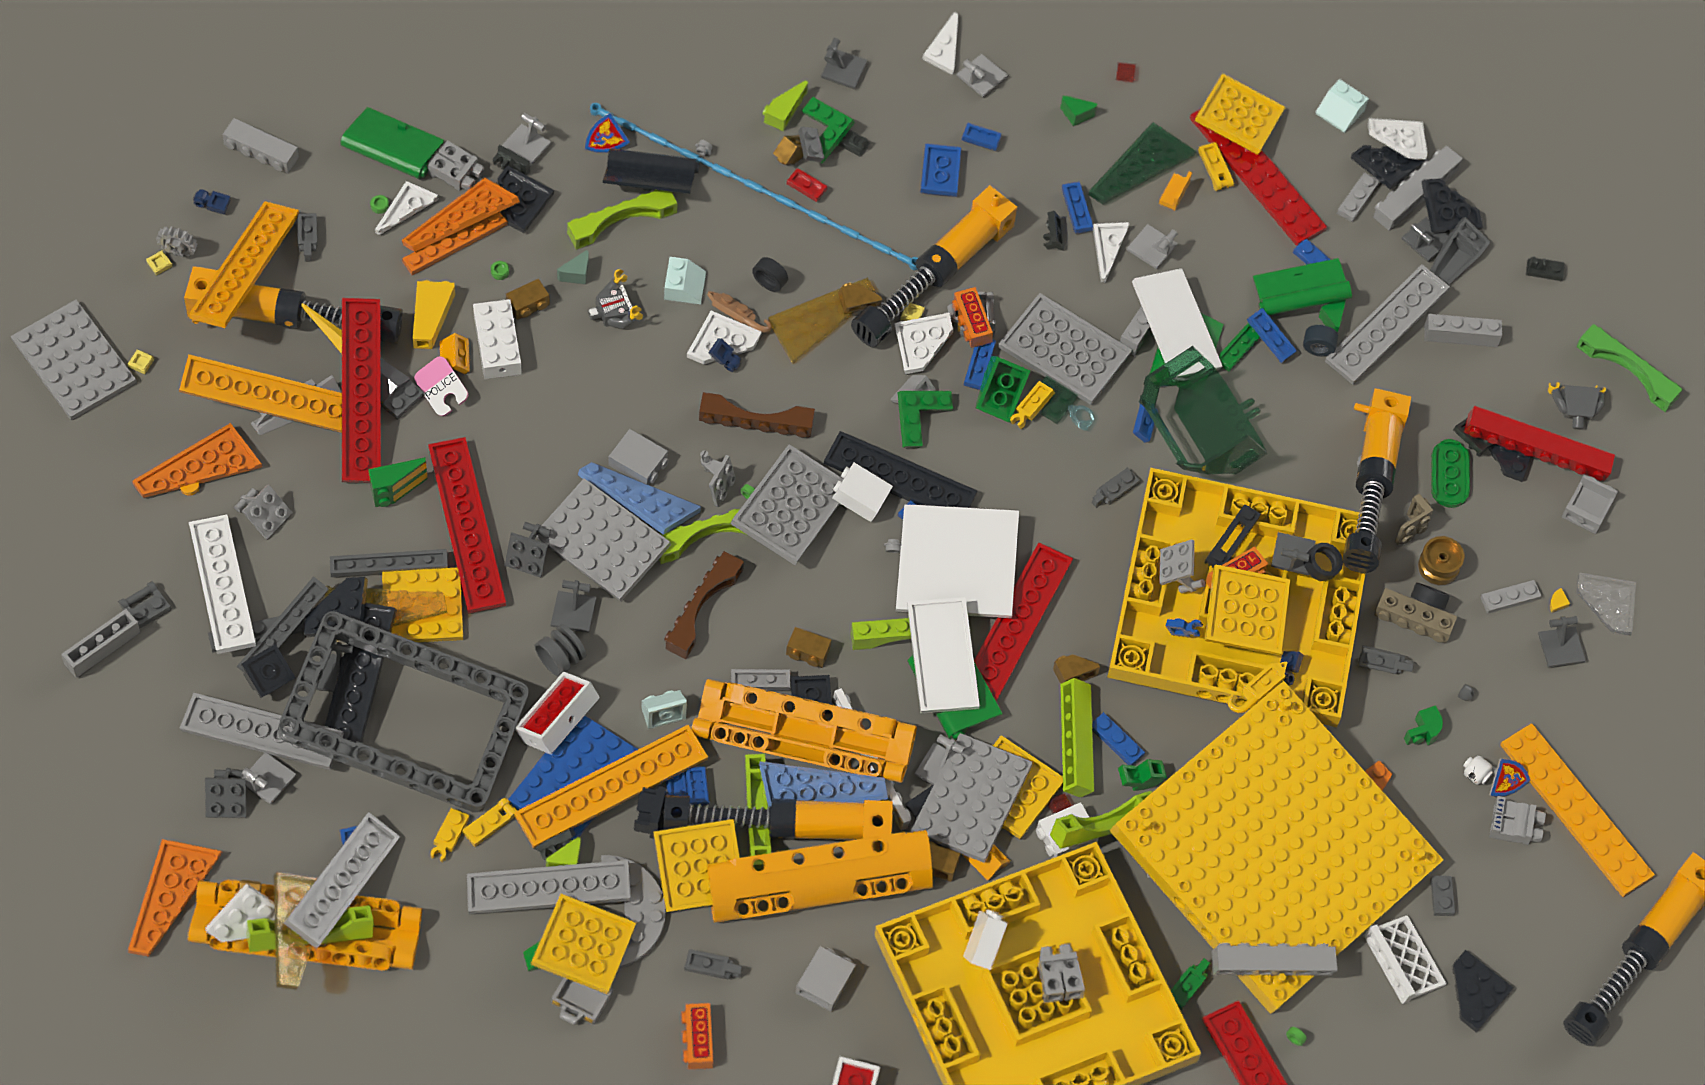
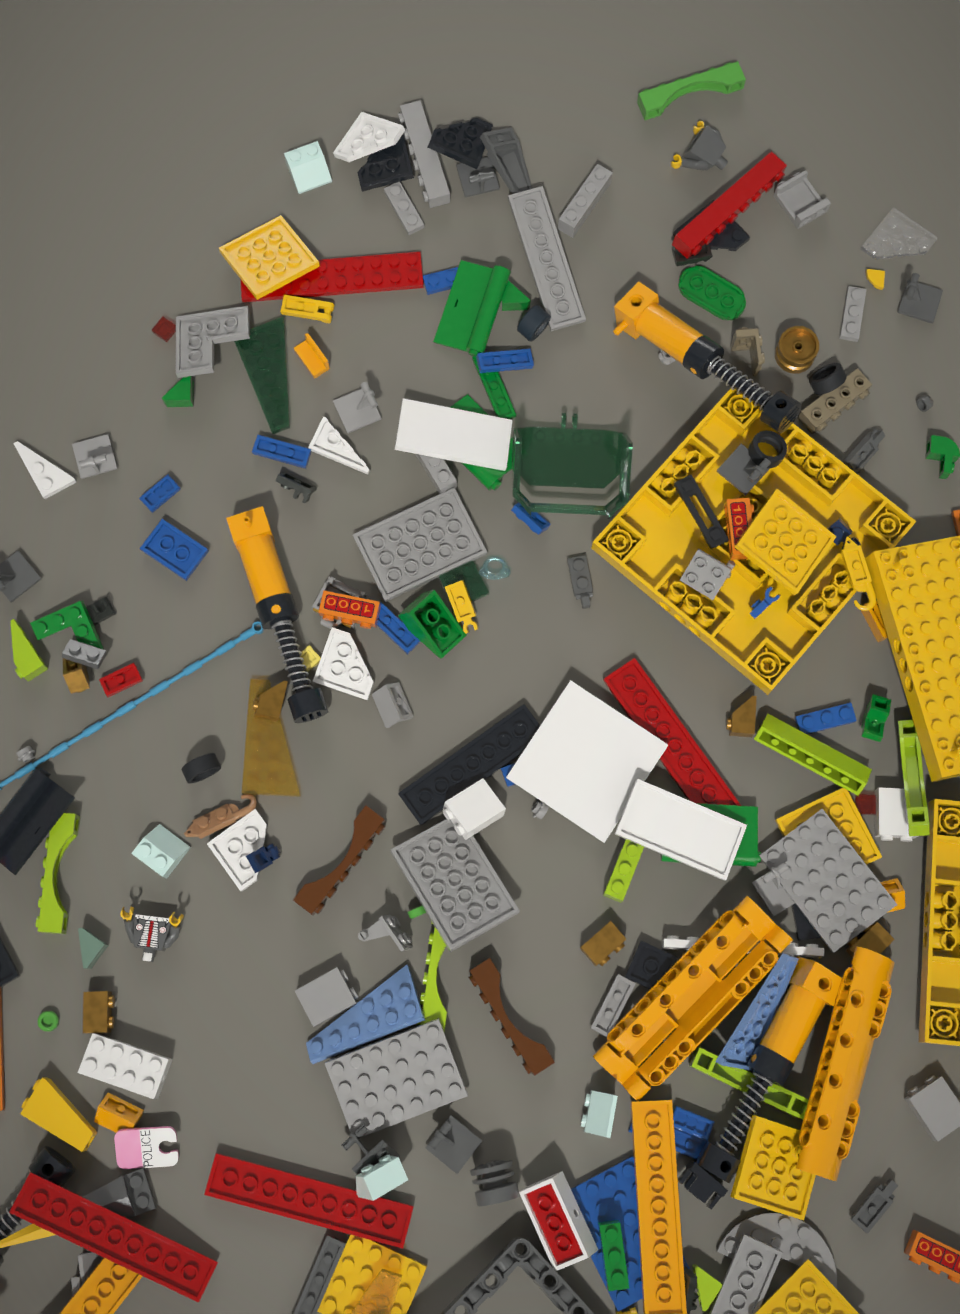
camera: 55 degrees left, 15 degrees up
(396, 480) = (230, 1257): green slope -> none
(516, 557) = (380, 1178): none -> light aqua slope
(553, 766) = (613, 1255): none -> green brick
(909, 406) = (414, 720): green plate -> none
(1139, 96) = (200, 332): none -> light grey plate
(1545, 268) = (558, 99): pearl dark grey plate -> none

